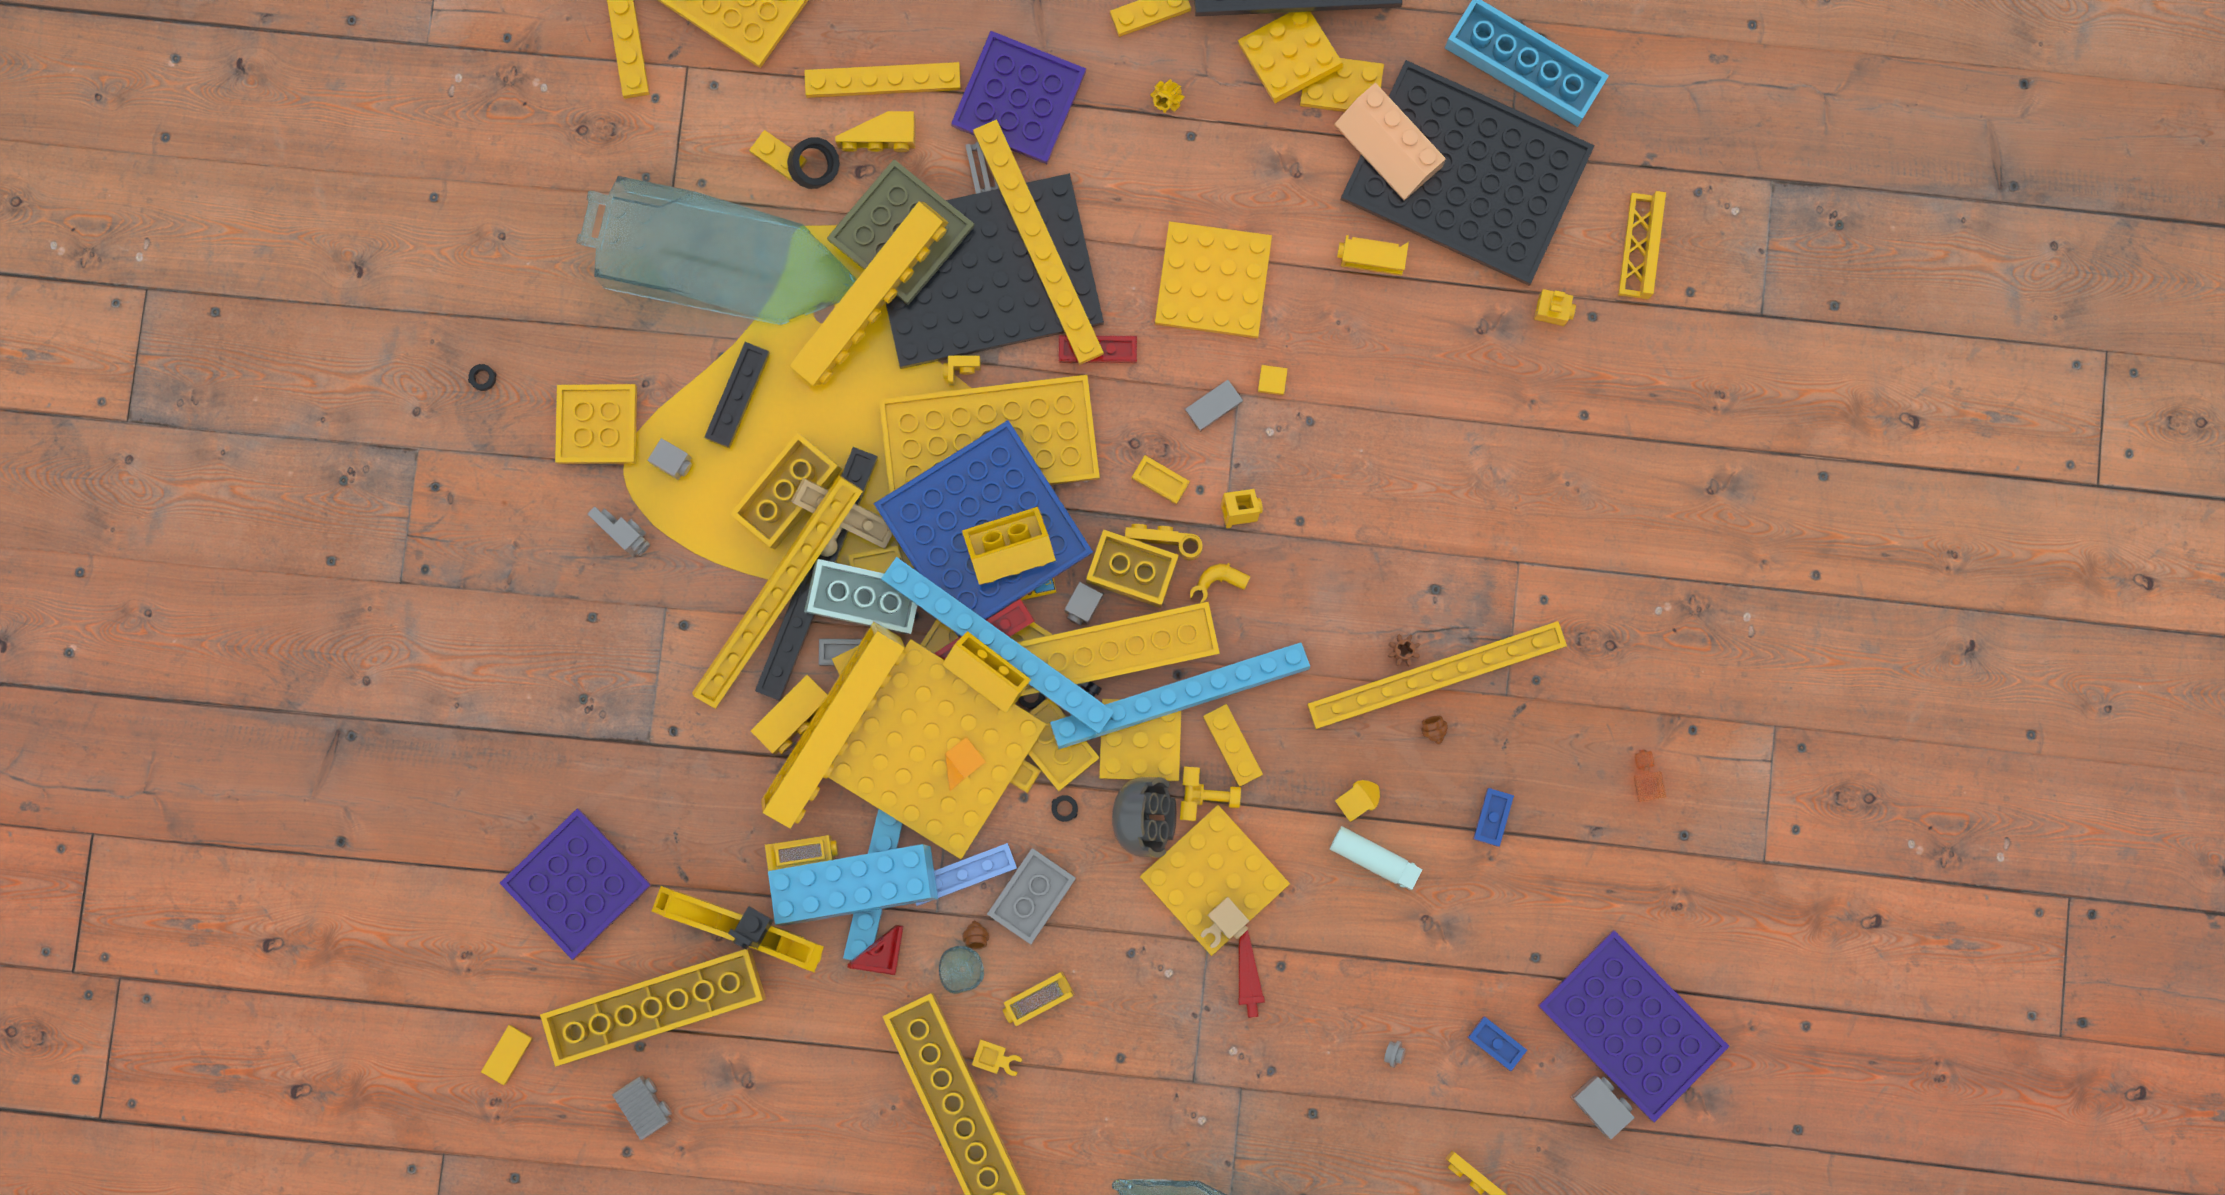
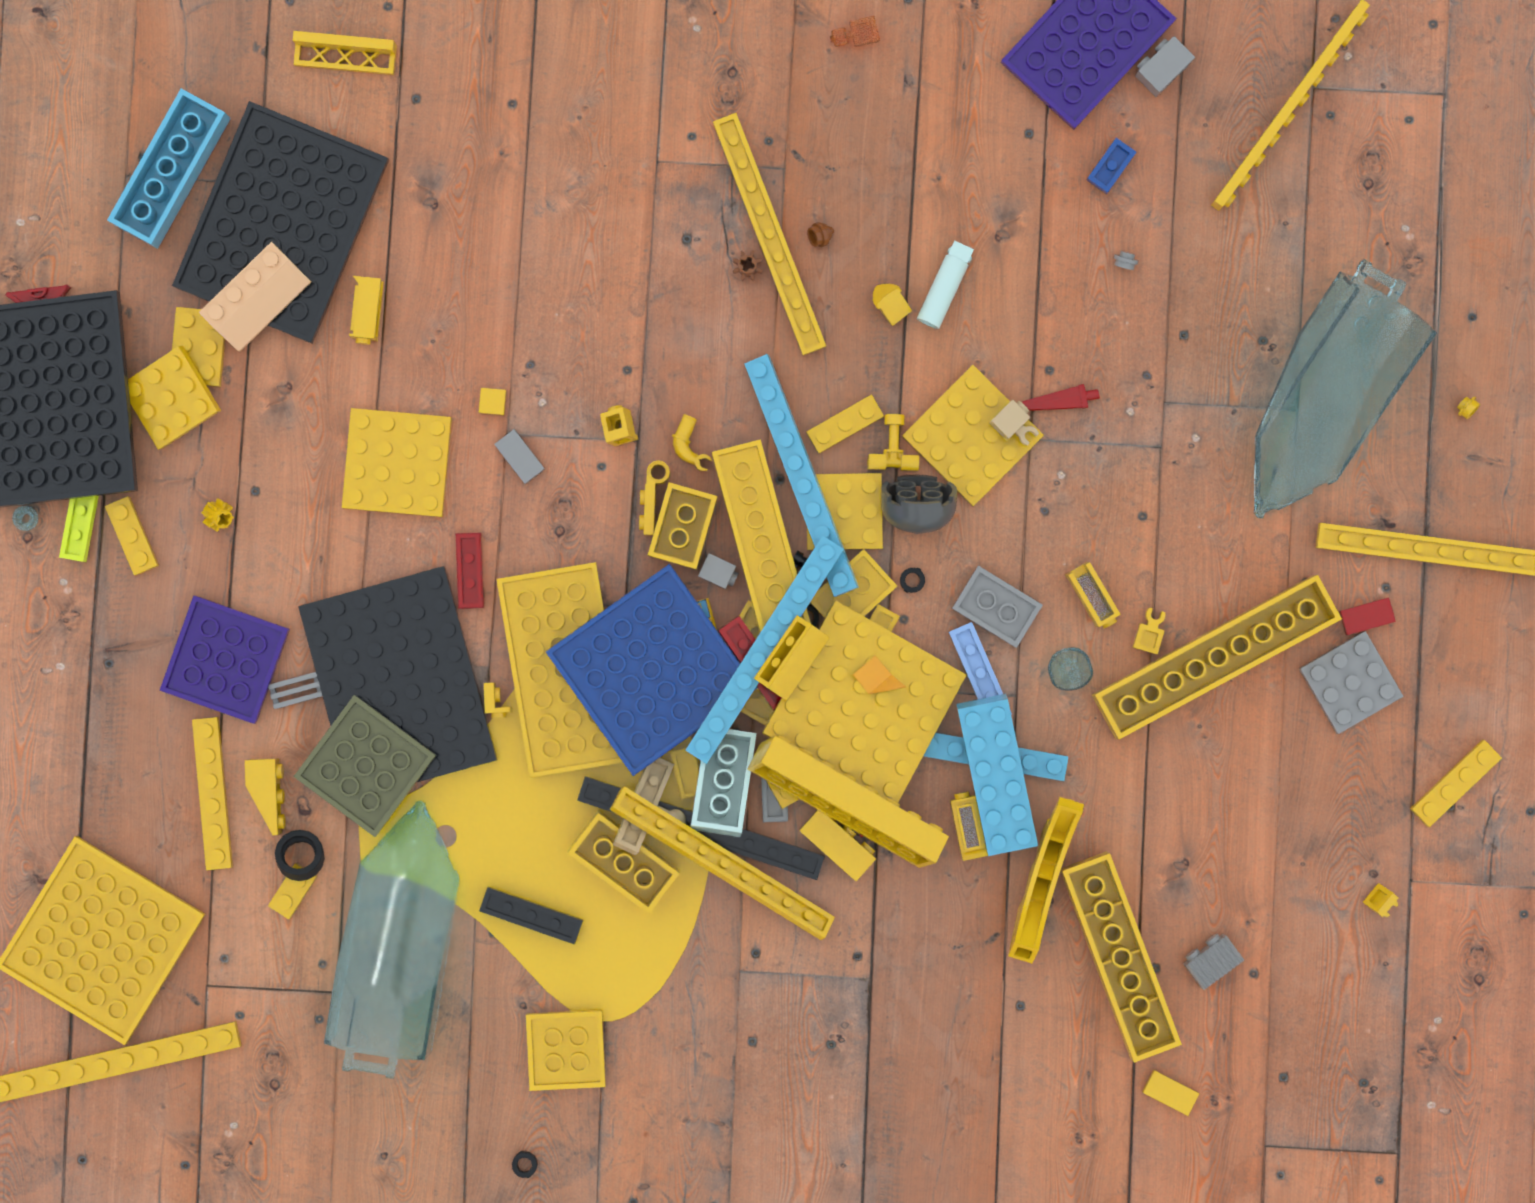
camera: 95 degrees left, 5 degrees up
(575, 884) = (1007, 1039): dark purple plate -> none
(626, 534) = (673, 1013): light grey plate -> none
(670, 459) = (597, 975): light grey brick -> none
(751, 929) = (1044, 867): black bracket -> none
(869, 293) = (428, 791): yellow brick -> none
(881, 955) = (1059, 744): red tile -> none
(975, 936) = (1037, 657): dark orange plate -> none
(1008, 545) = (668, 643): yellow slope -> none
(1038, 242) = (368, 633): yellow plate -> none
(1160, 479) = (594, 504): yellow tile -> none
(1493, 817) = (901, 176): blue plate -> none
(1554, 307) = (410, 134): yellow brick -> none

